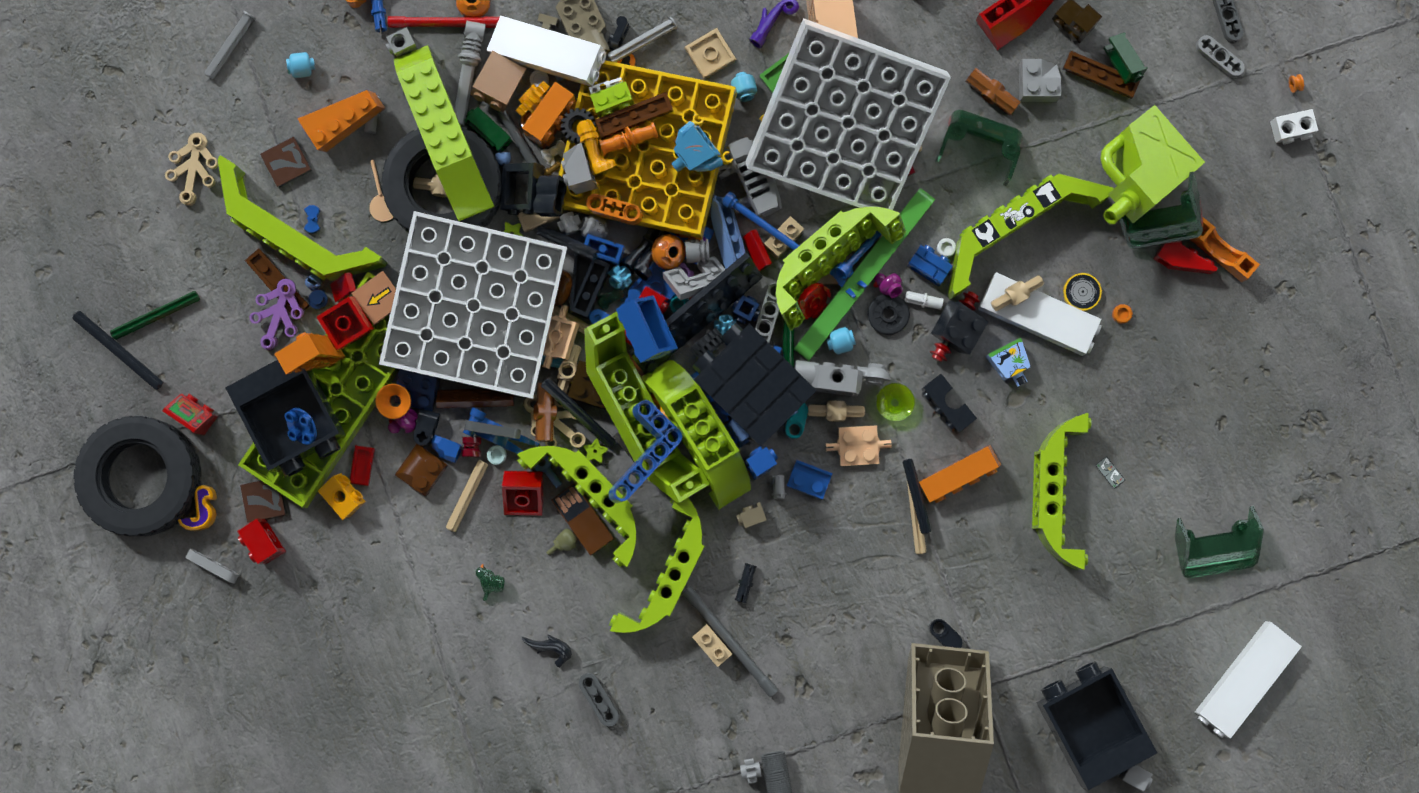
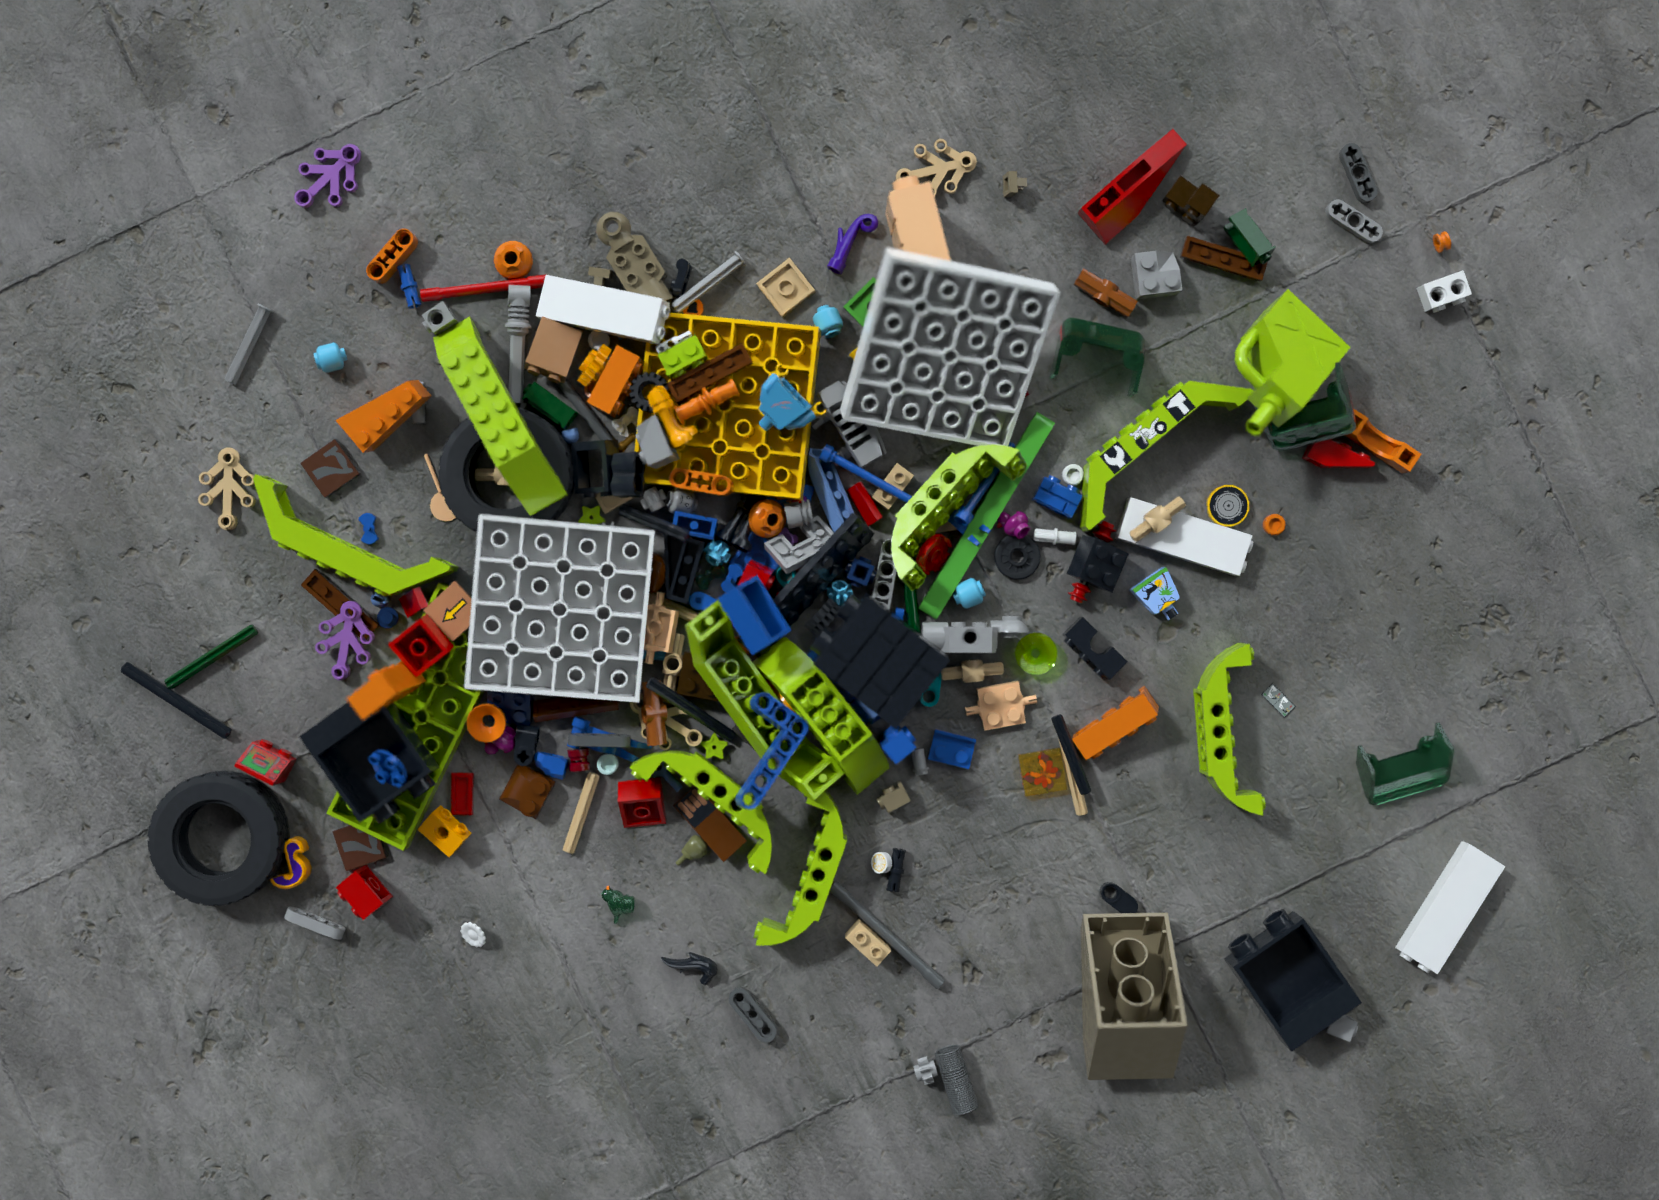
camera: 10 degrees left, 5 degrees up
(354, 594) = (473, 934): none -> white piece
(733, 574) = (881, 862): none -> white tile
(889, 510) = (1042, 771): none -> clear yellow tile

